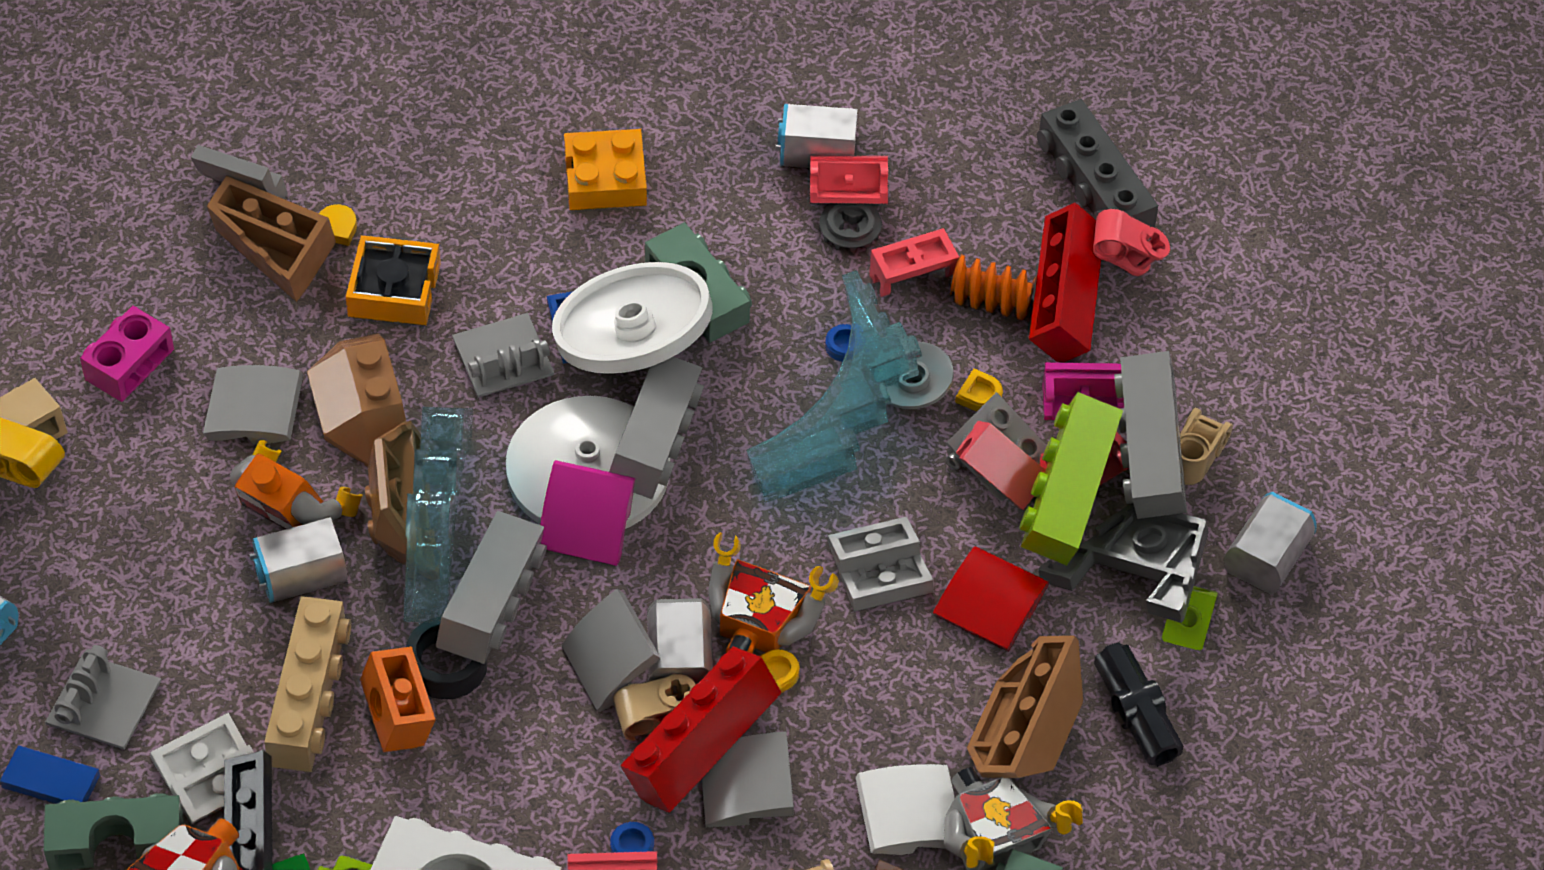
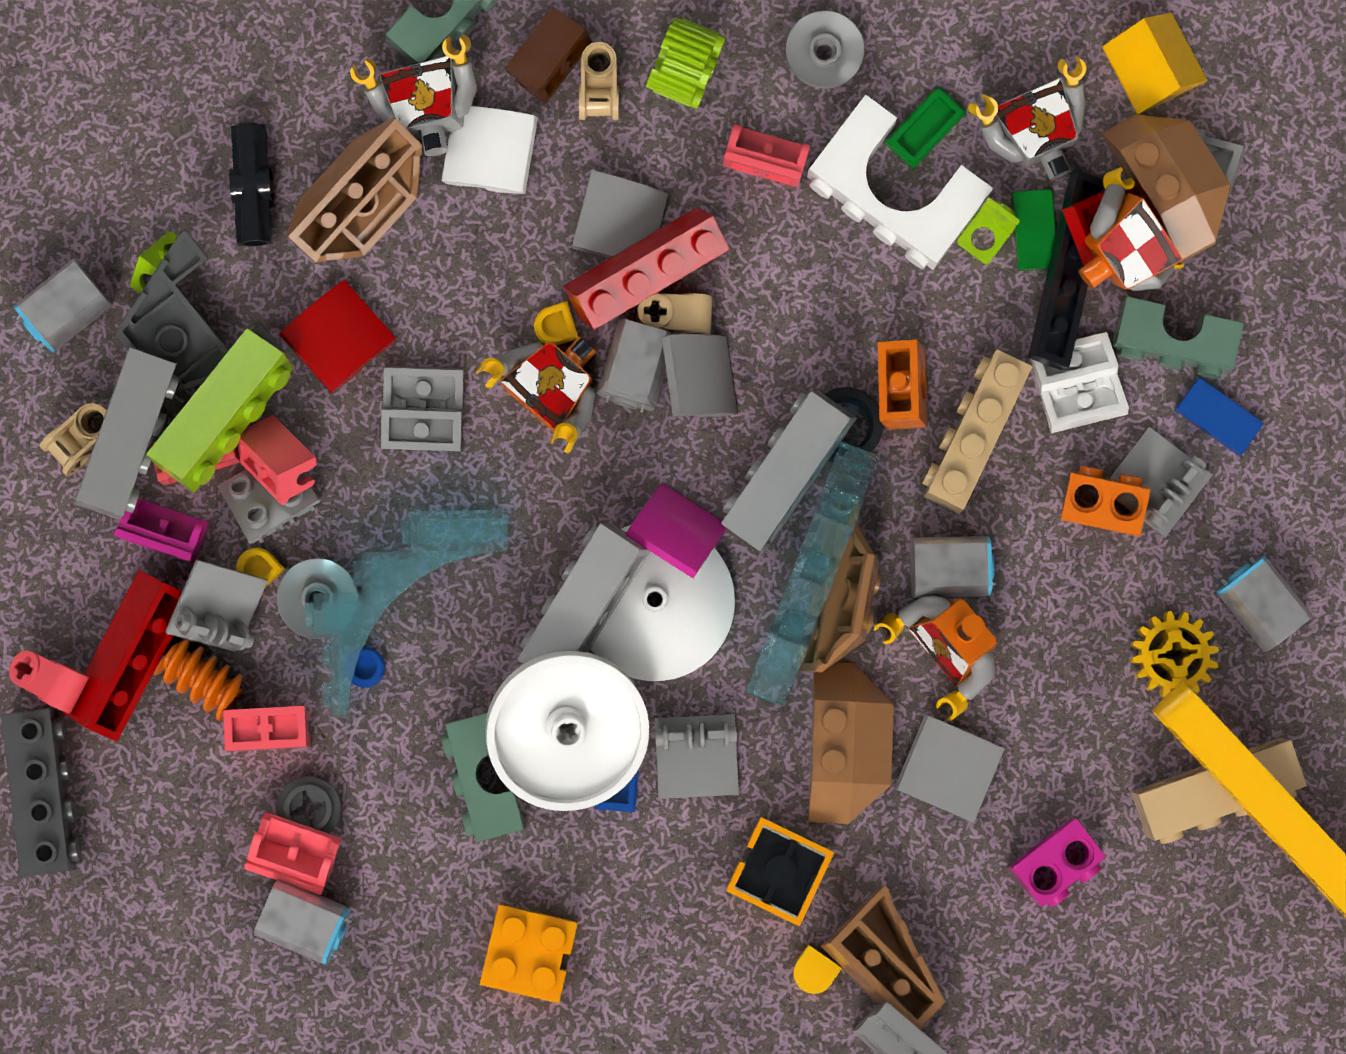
camera: 165 degrees left, 30 degrees up
(50, 549) = (1172, 635): none -> yellow gear
(154, 654) = (1102, 512): none -> orange brick
(632, 838) = (736, 195): blue tile -> none
(1001, 331) = (217, 607): none -> light grey hinge

